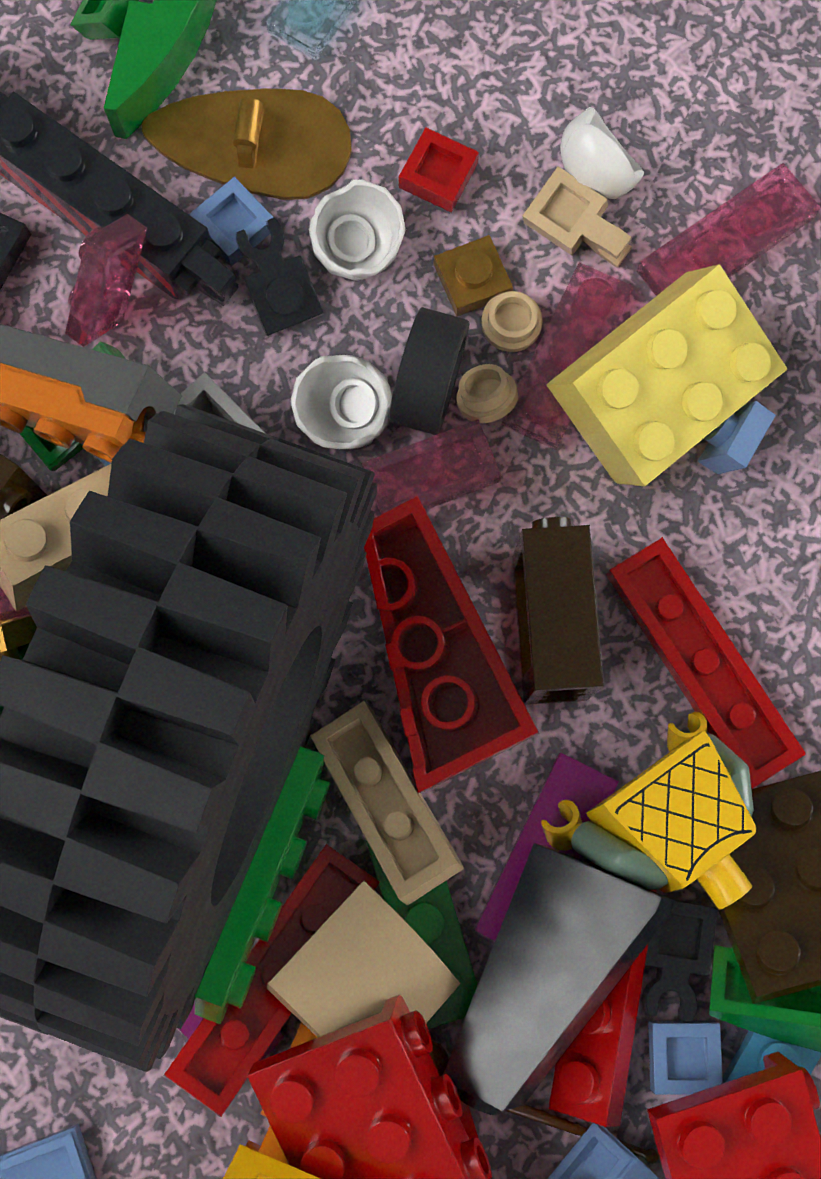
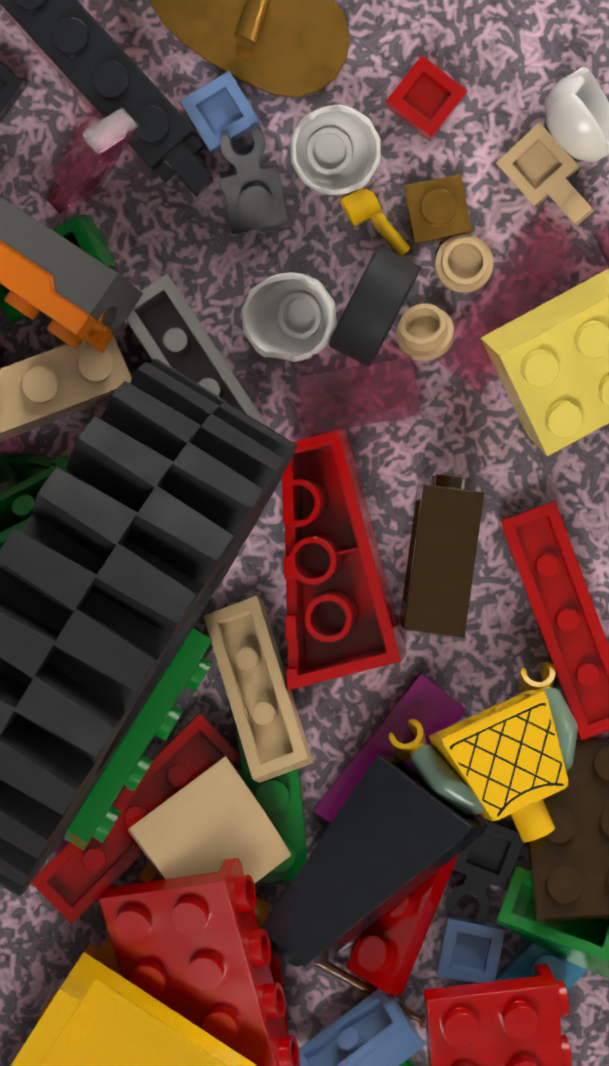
camera: 15 degrees right, 10 degrees up
(398, 283) = (364, 205): none -> yellow hand

